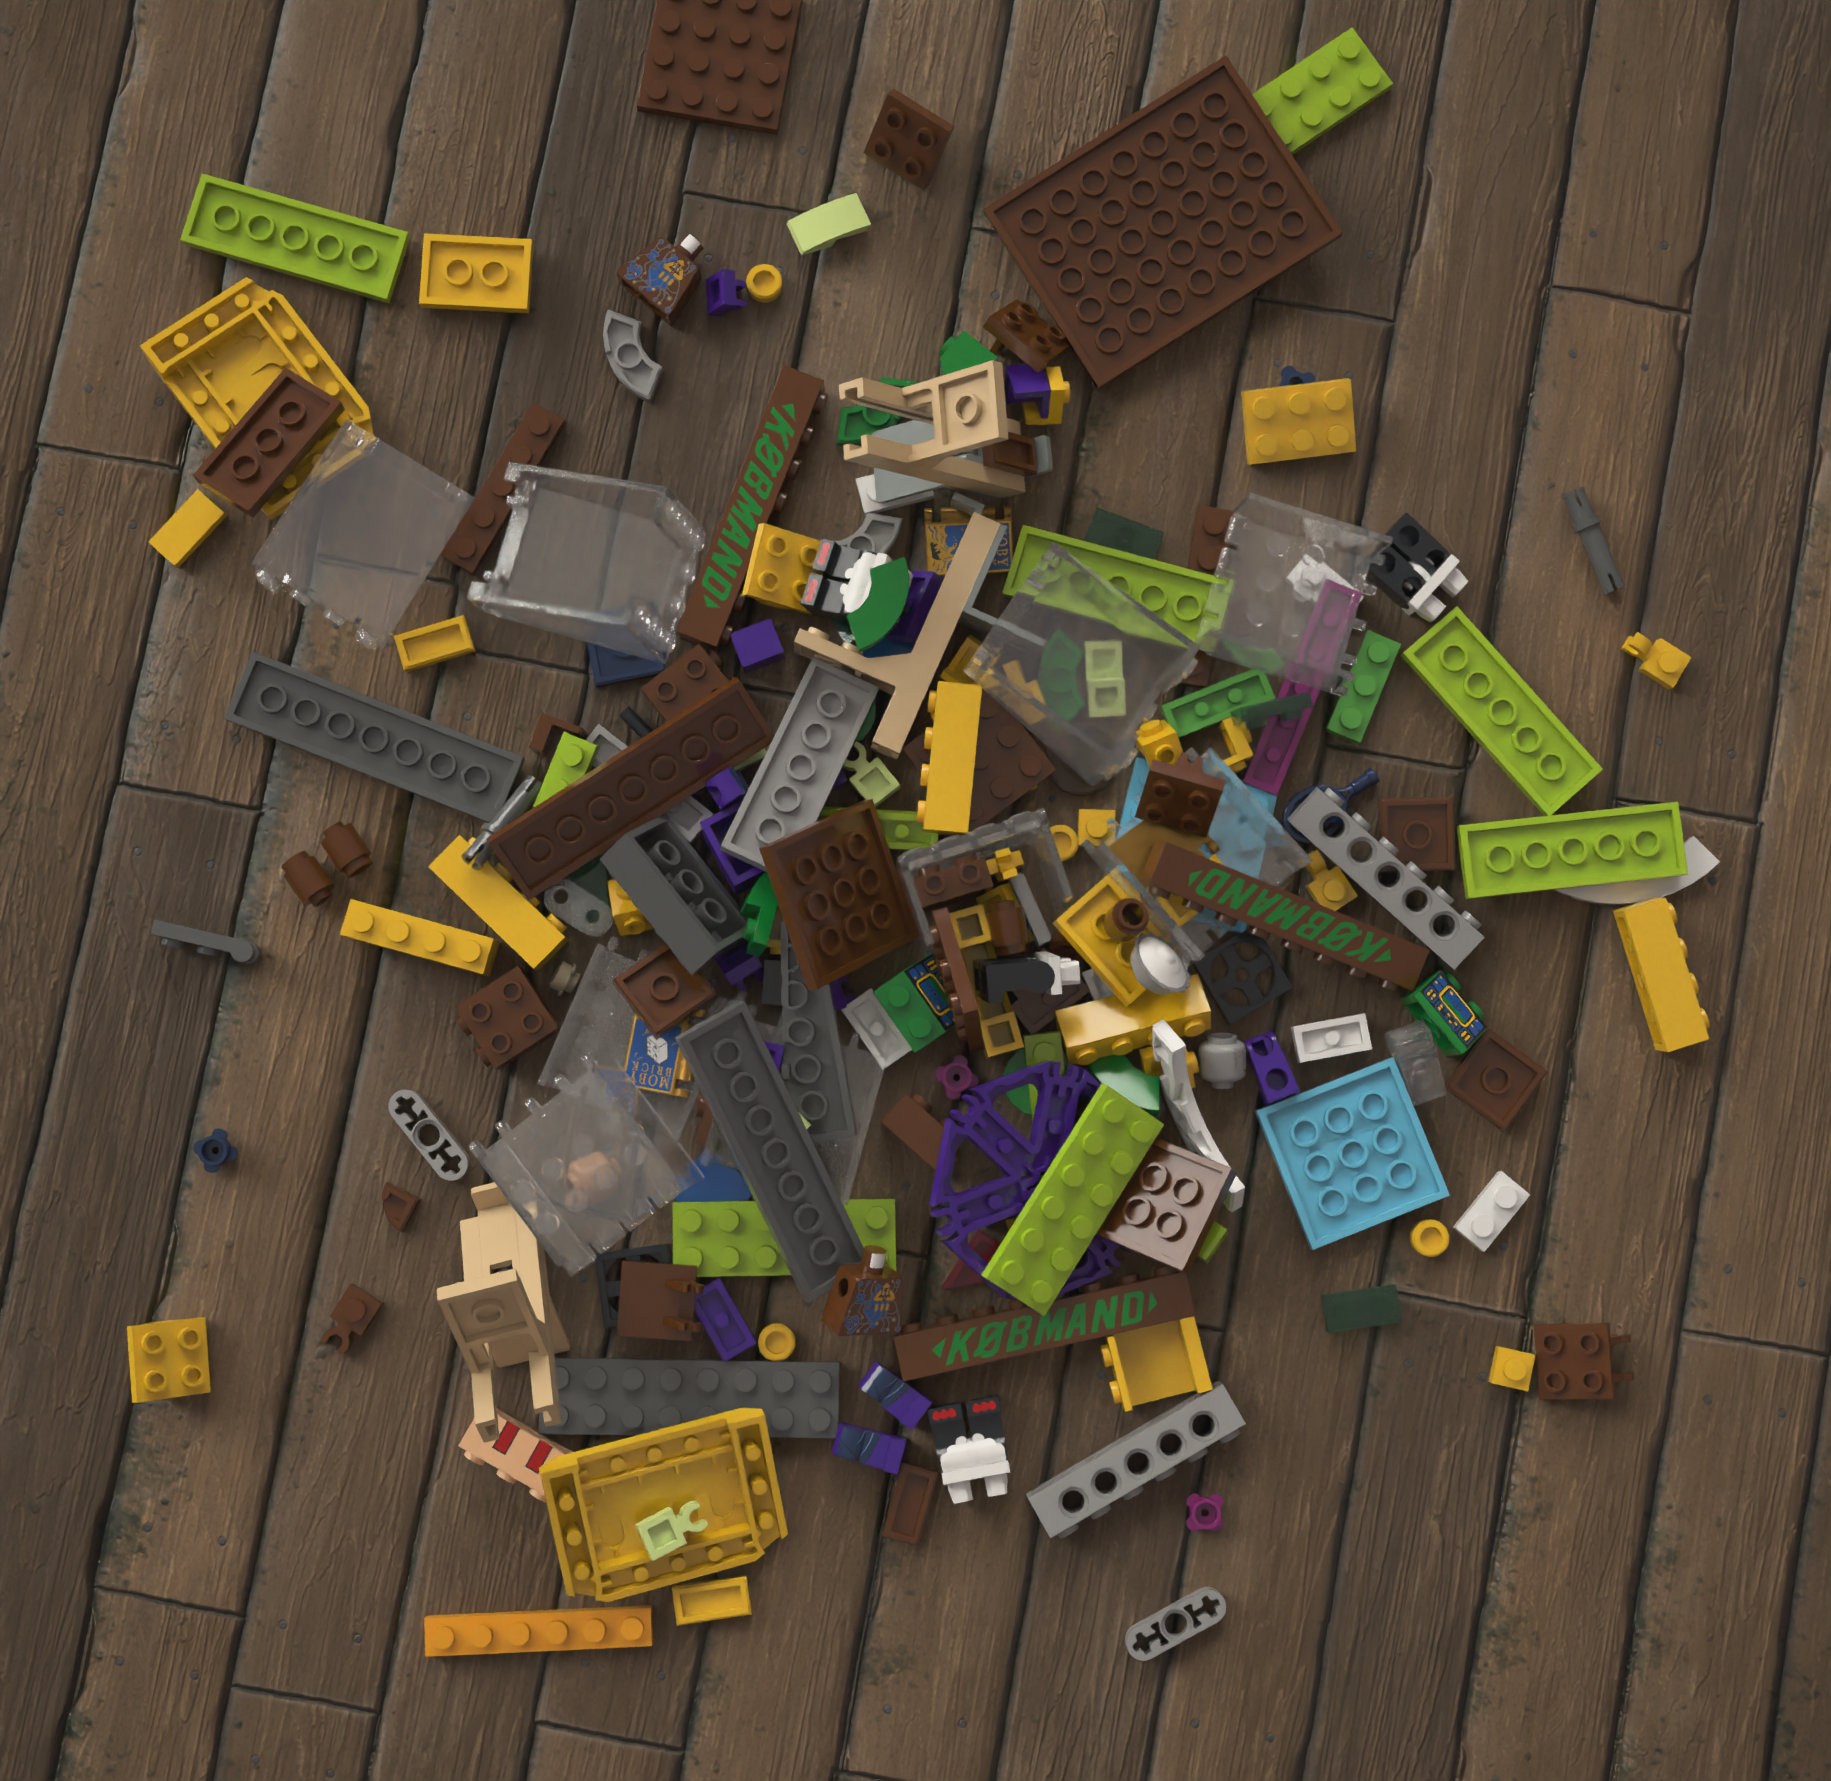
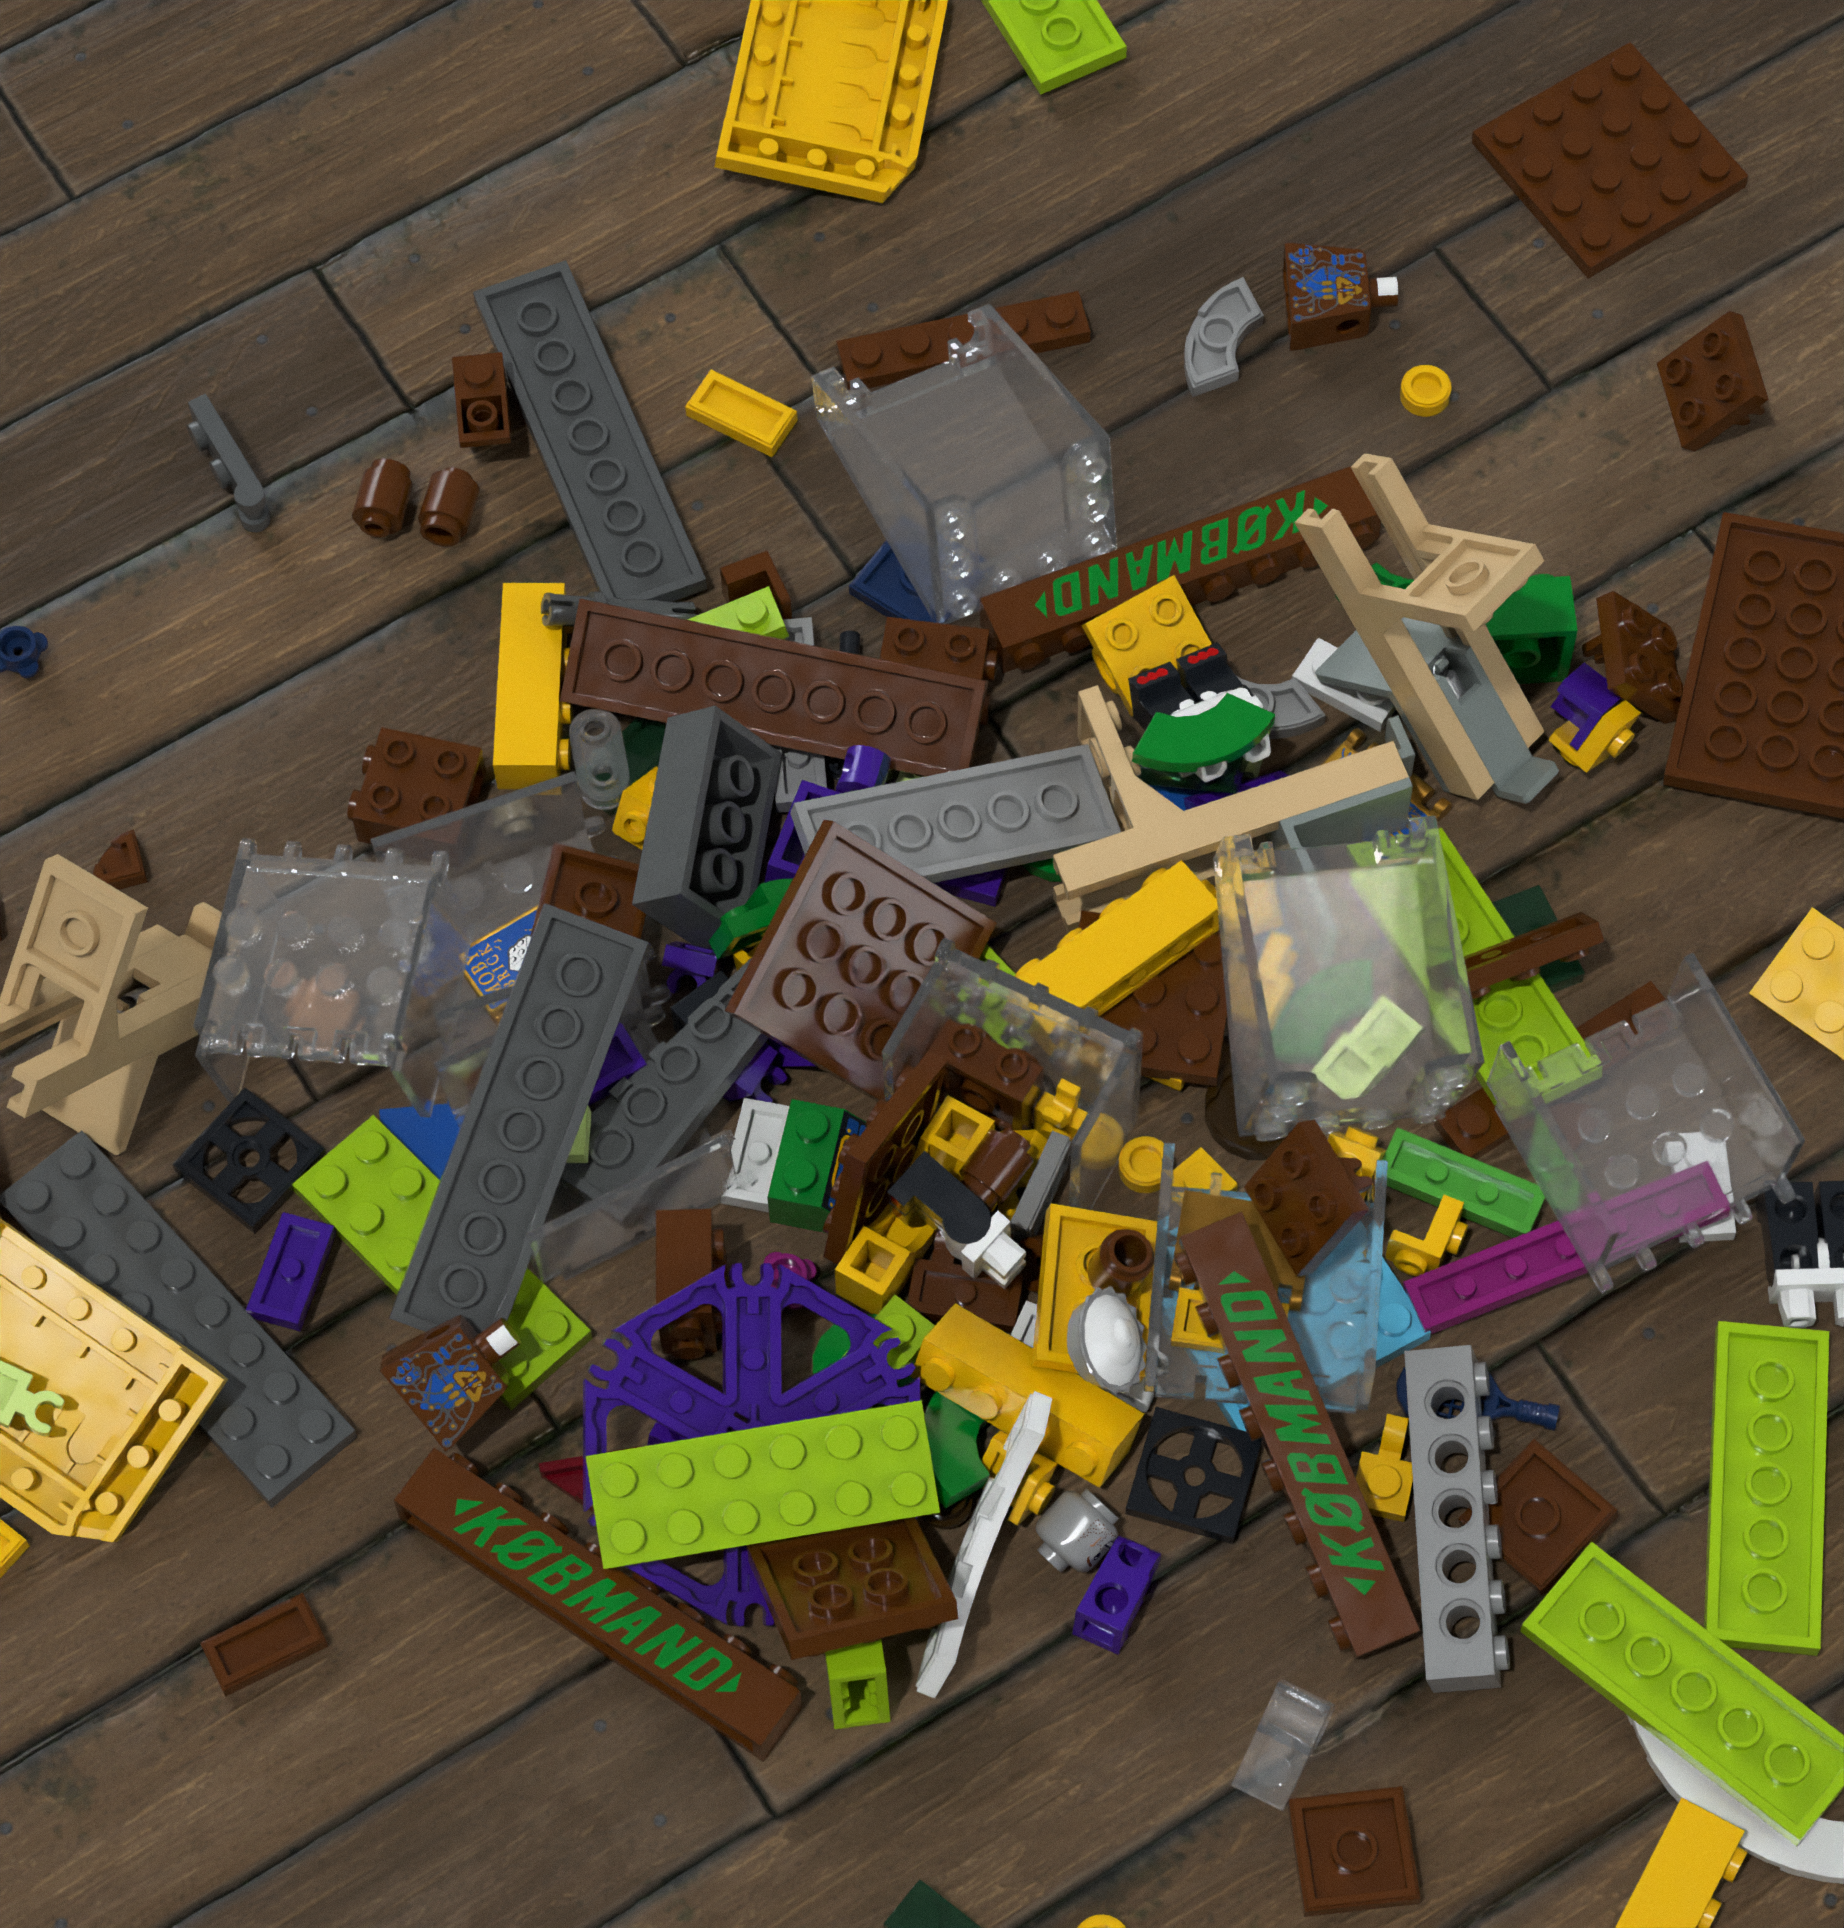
camera: 55 degrees right, 20 degrees down
(187, 528) = (632, 114): yellow tile -> none
(269, 442) = (788, 95): reddish brown plate -> none
(303, 778) = (481, 400): none -> reddish brown slope
(362, 535) = (776, 243): clear windscreen -> none
(414, 1134) = (215, 809): light grey beam -> none
(420, 937) = (422, 644): yellow brick -> none
(476, 273) = (1151, 138): yellow plate -> none
(658, 1301) = (250, 1182): reddish brown plate -> none
(721, 293) = (1371, 358): dark purple tile -> none
(757, 646) = (1045, 693): dark purple panel -> none
(776, 1342) = (319, 1351): yellow tile -> none
(828, 223) = (1545, 388): yellowish green slope -> none
(869, 1447) = (290, 1543): leg -> none
(872, 778) = (1021, 916): yellowish green plate -> none
(895, 1395) = (372, 1519): leg -> none
(972, 1457) = (388, 1644): hips -> none
(1012, 455) = (1496, 735): reddish brown tile -> none
(1113, 1458) = (405, 1779): light grey brick -> none
(1143, 551) = (1524, 954): none -> reddish brown plate
(1156, 1362) = (667, 1764): yellow panel -> none
(1287, 708) = (1488, 1214): clear green plate -> none
(1331, 1038) = (1219, 1628): white plate -> none
(1352, 1153) = (1112, 1768): medium azure plate -> none
(1371, 671) = (1638, 1321): bright green plate -> none
(1446, 1013) = (1371, 1717): slope -> none

